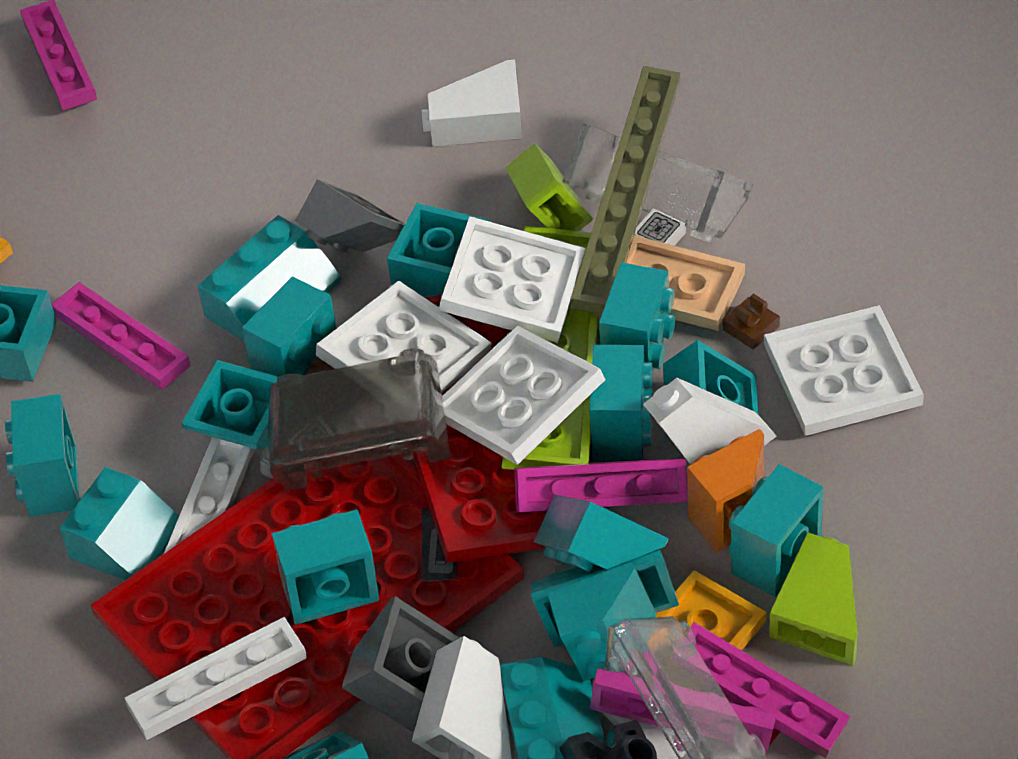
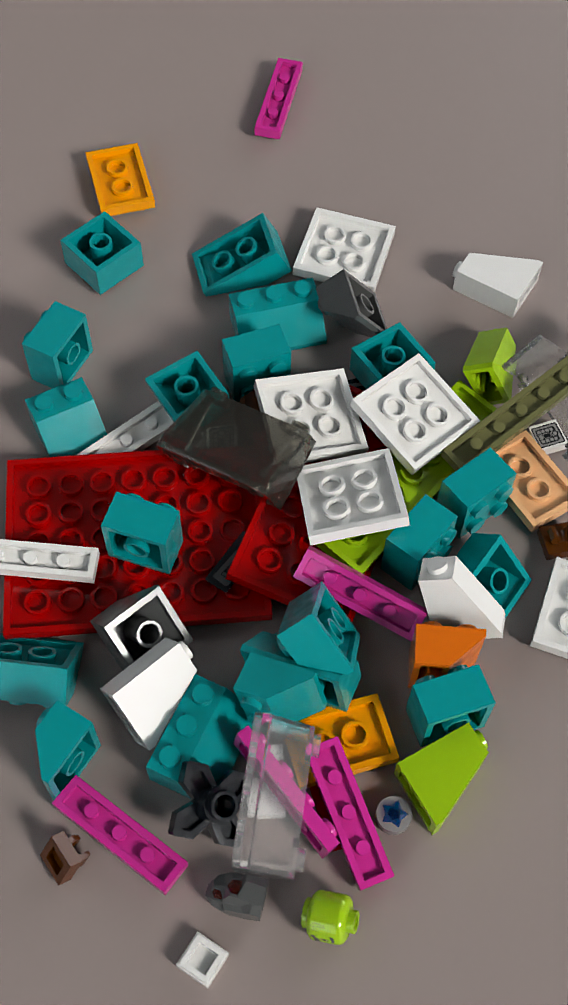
camera: 30 degrees right, 10 degrees up
(121, 335) = (169, 298): dark pink plate -> none
(171, 246) = (242, 258): none -> teal slope
(276, 170) = (346, 243): none -> white plate
(803, 668) = (393, 815): none -> light grey tile

